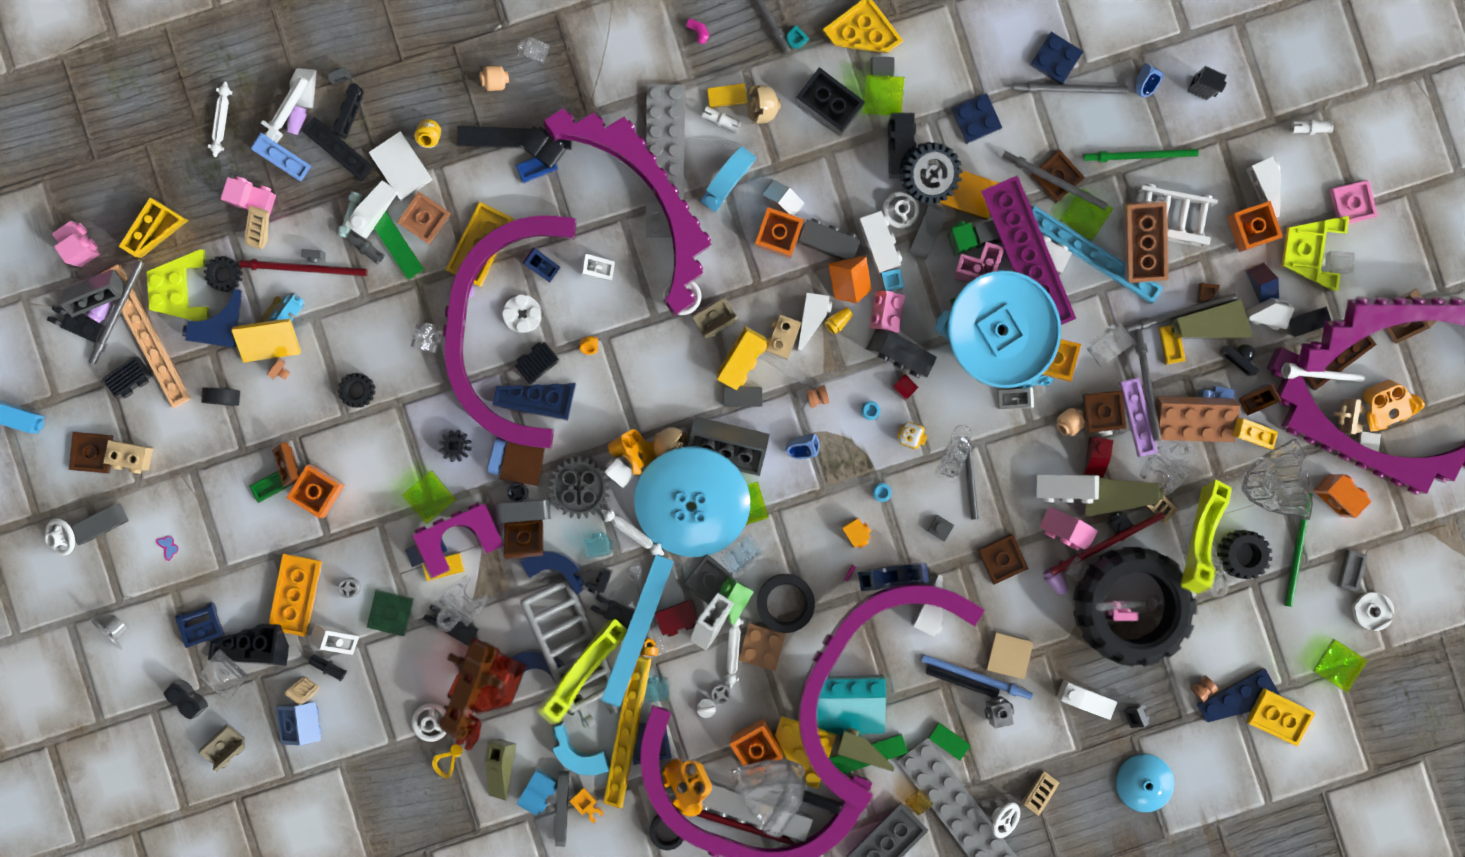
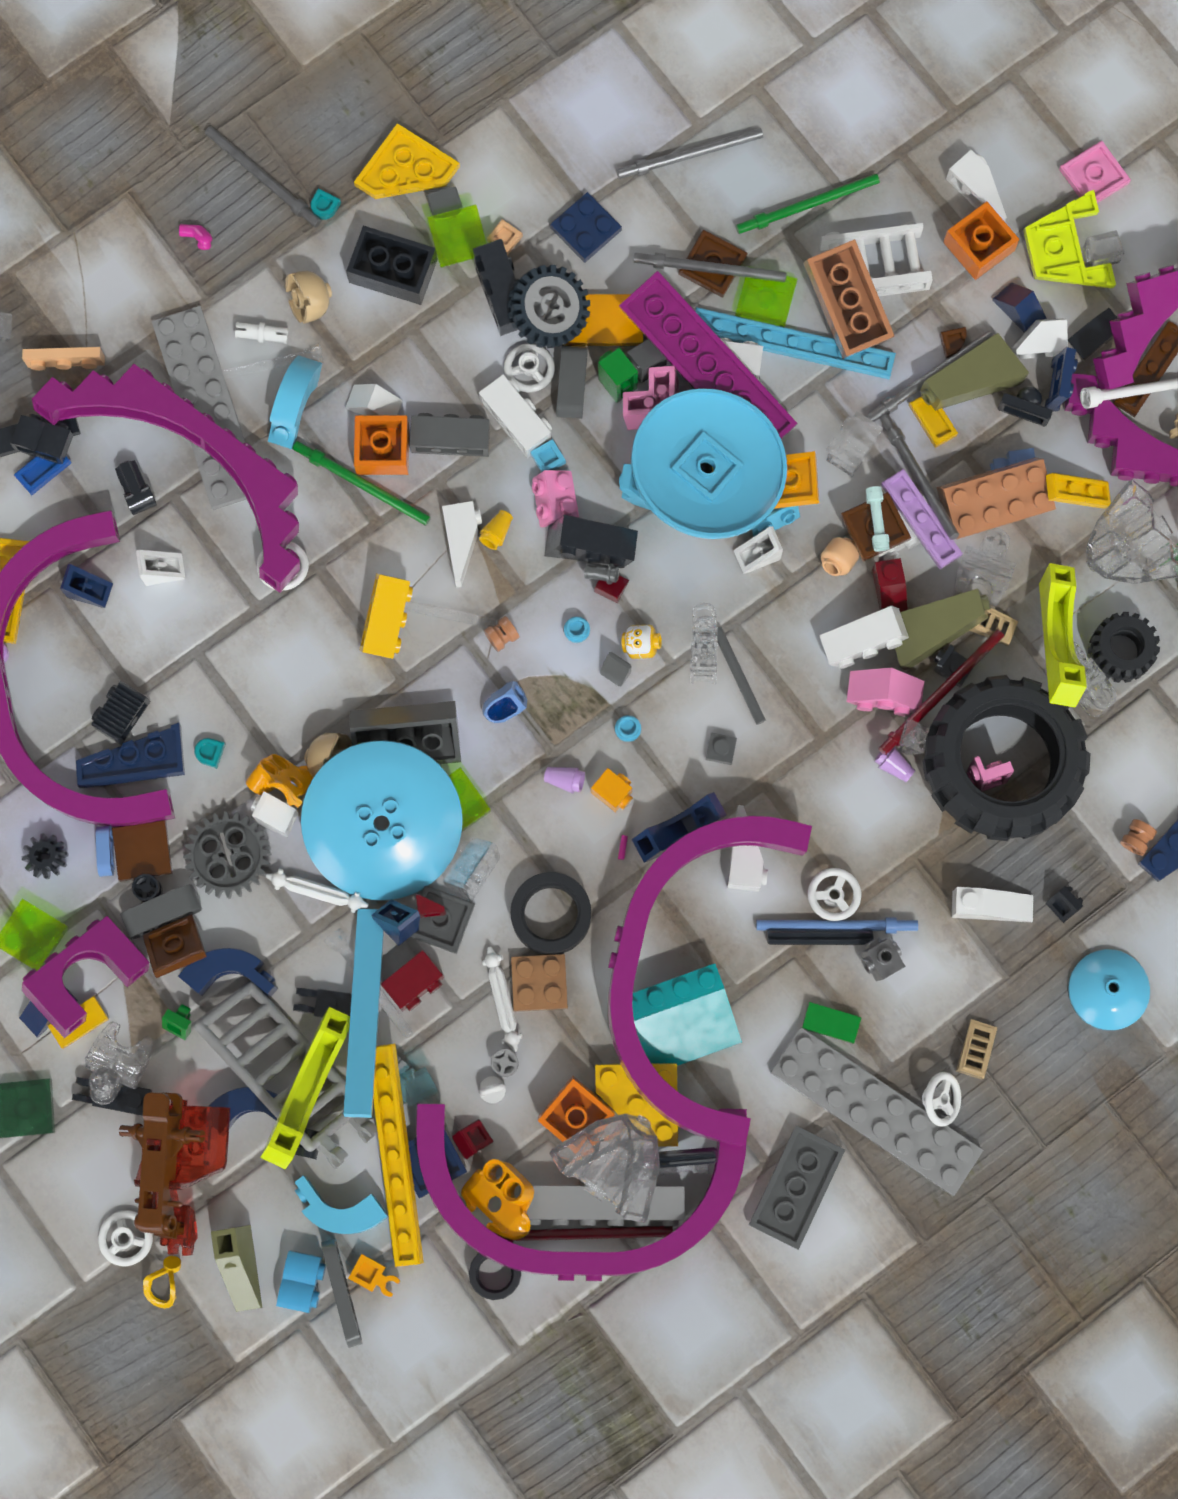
camera: 20 degrees left, 10 degrees down
(510, 591) = (178, 1022): none -> green tile
(511, 314) = (75, 645): white plate -> none
(575, 91) = (63, 358): none -> light nougat plate
(588, 345) = (181, 668): light orange tile -> none
(589, 410) = (209, 752): none -> teal tile
(597, 207) = (136, 490): none -> black piece
(599, 545) = (277, 922): clear light blue brick -> none
(603, 579) = (298, 965): black bracket -> none
(649, 651) = (389, 1037): light orange tile -> none
(679, 573) = (397, 920): none -> dark blue slope
(682, 736) = (472, 1139): none -> dark red slope
(704, 573) = (429, 908): none -> dark red slope
(711, 621) = (458, 968): white slope -> none
(714, 317) = (334, 578): dark tan bracket -> none
(727, 95) = (259, 302): yellow tile -> none
(731, 225) = (318, 459): none -> green bar
(738, 594) = (479, 930): slope -> none
(743, 397) = (405, 667): dark grey tile -> none
(783, 336) = (431, 573): tan brick -> none
(827, 513) = (565, 778): none -> lavender cone
(850, 279) = (492, 472): orange slope -> none
(859, 748) = (712, 1068): olive slope -> none
(887, 448) = (615, 669): none -> dark grey slope
(888, 747) = (735, 1074): green tile -> none
(901, 377) = (601, 572): none -> dark grey pin
(916, 105) = (508, 234): none -> light nougat tile
(919, 802) = (819, 1116): clear yellow plate -> none
(992, 646) = (824, 895): none -> white piece
(1002, 559) = (815, 761): reddish brown tile -> none
(1009, 655) = (876, 879): tan tile -> none
(1056, 58) = (660, 123): dark blue plate -> none
(1111, 392) = (874, 497): none -> light aqua bar
(1148, 80) = (783, 112): medium blue rock -> none
(1151, 603) = (1027, 750): clear piece -> none
(1207, 83) = (857, 90): black brick -> none
(1259, 399) = (1069, 447): reddish brown slope -> none
(1273, 348) = (1061, 387): none -> dark blue plate
(1312, 126) = (1007, 101): white pin -> none

